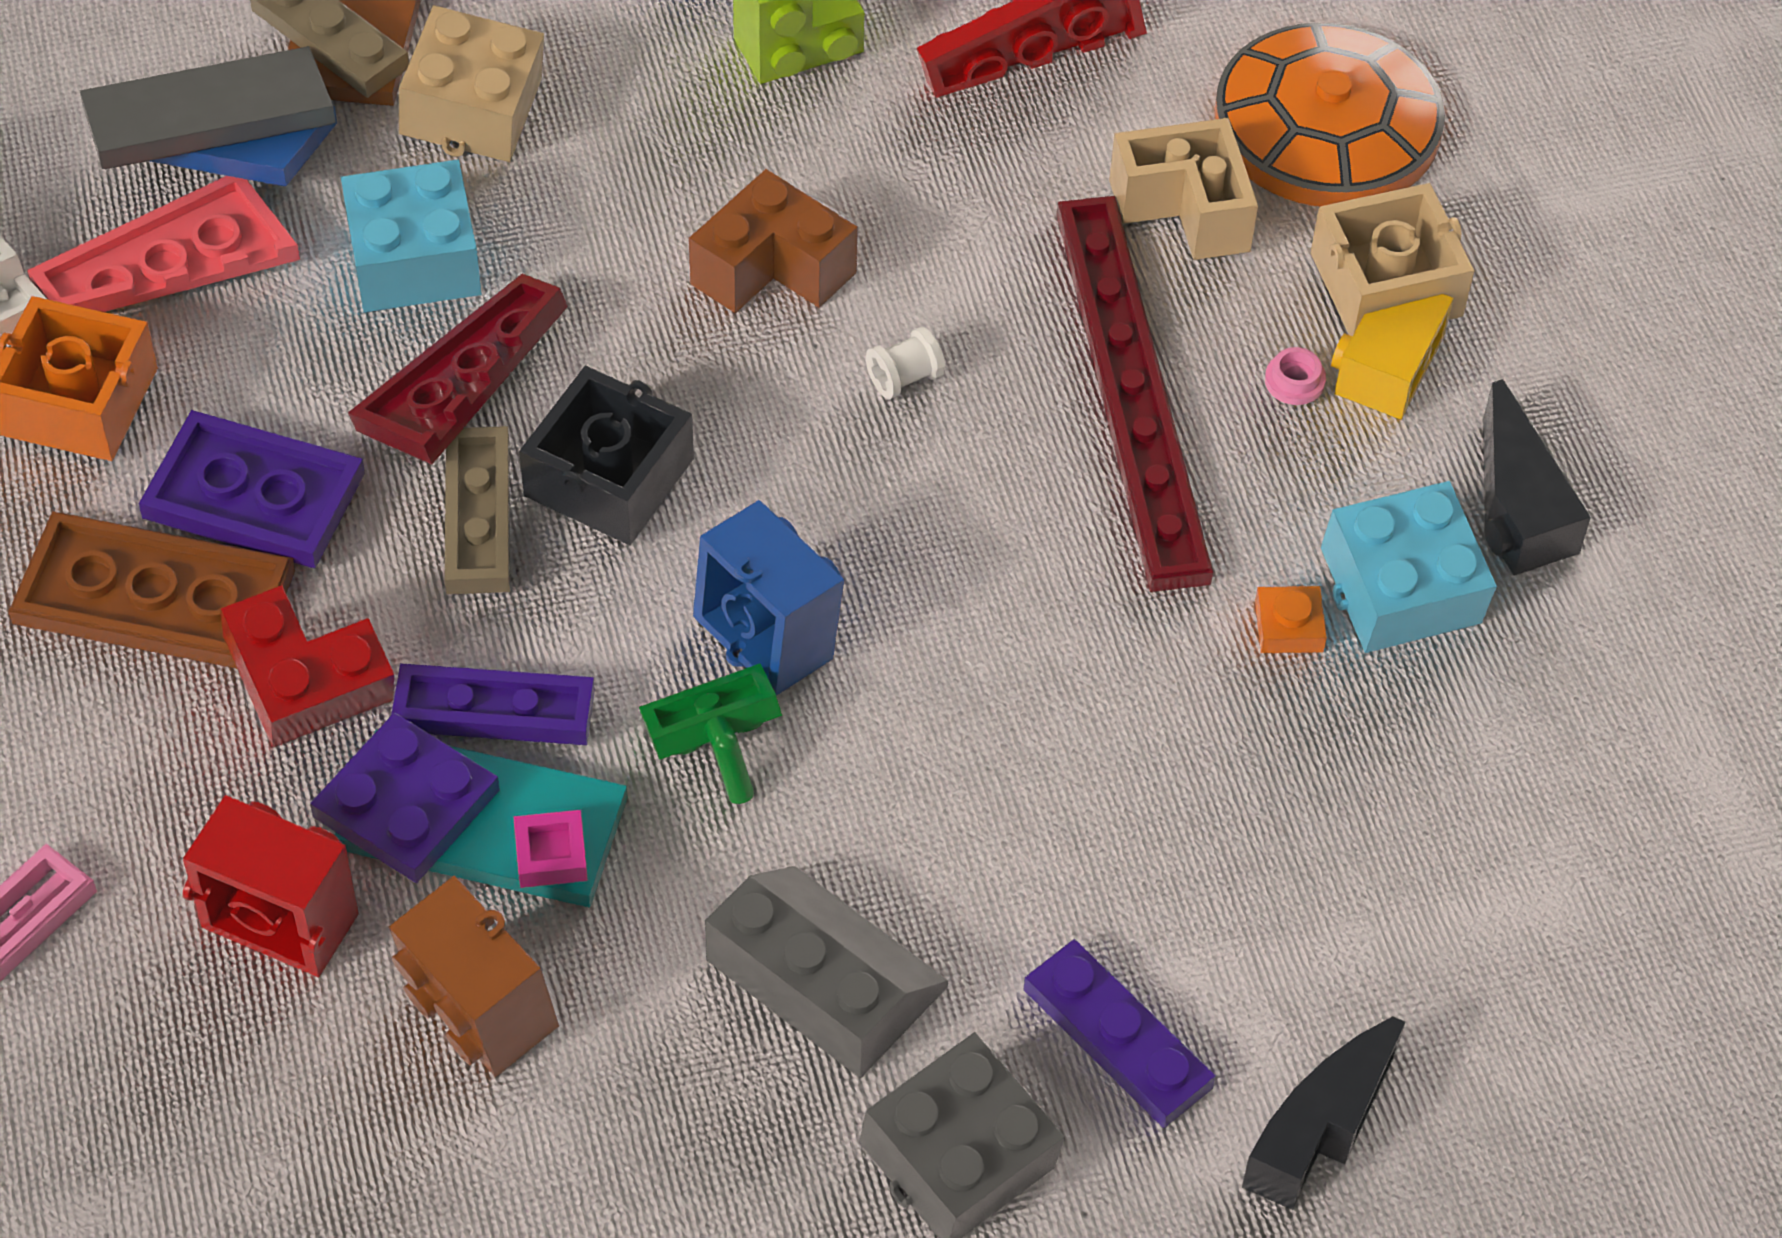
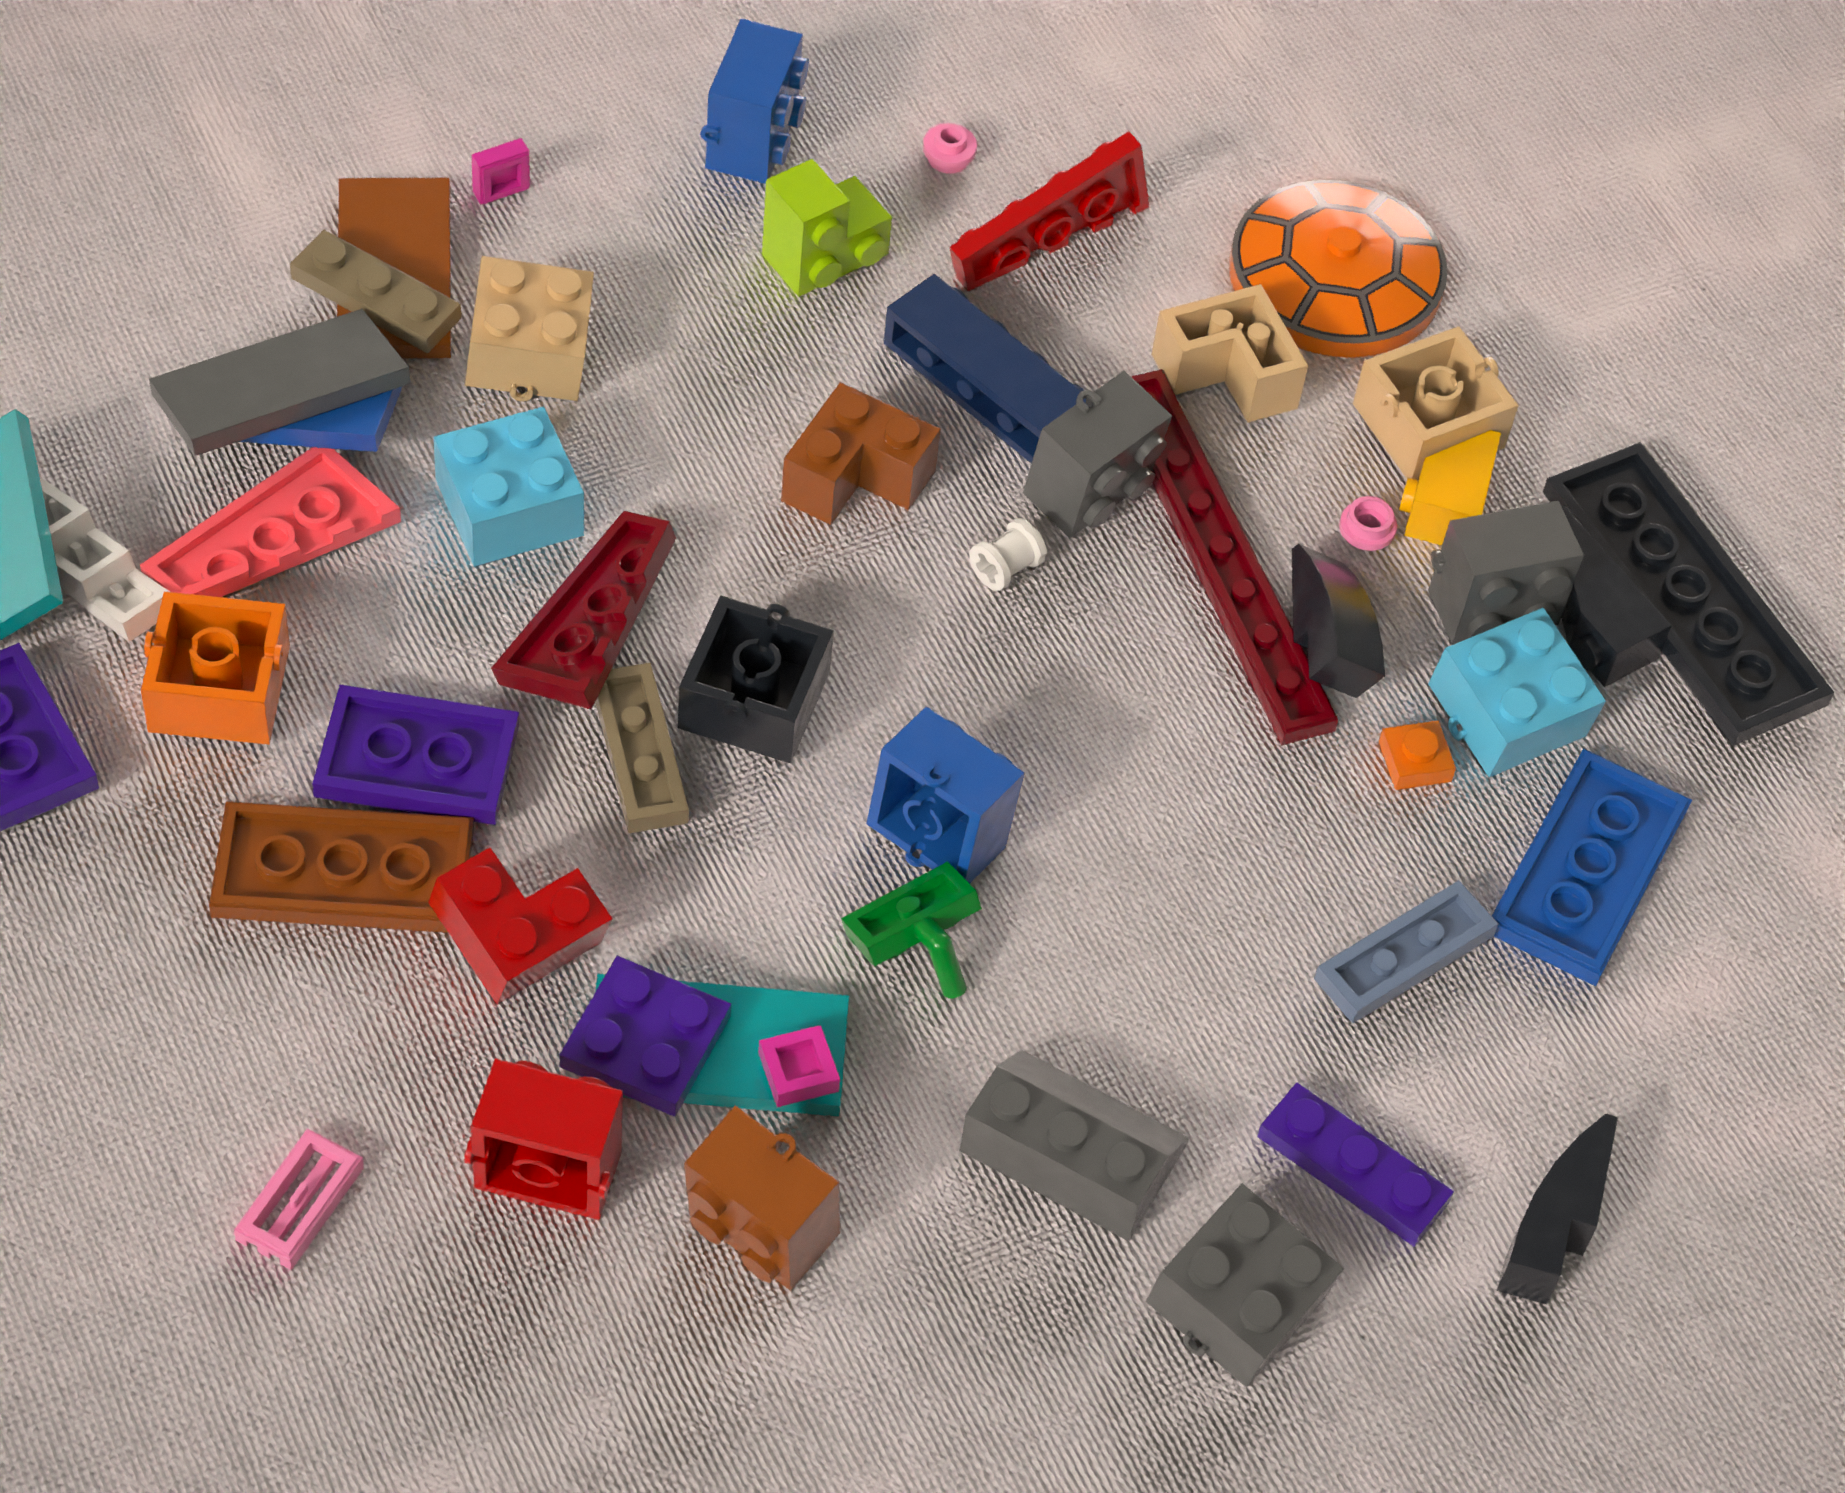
camera: 15 degrees left, 0 degrees up
(495, 703) = (706, 933): dark purple plate -> none
(932, 179) = (978, 363): none -> dark blue brick
(1015, 270) = (1097, 454): none -> dark grey brick
(1225, 819) = (1405, 951): none -> sand blue plate
(1229, 472) = (1335, 623): none -> black slope
(1422, 434) = (1504, 568): none -> dark grey brick
(1448, 759) = (1589, 866): none -> blue tile
(1646, 520) = (1721, 629): none -> black plate

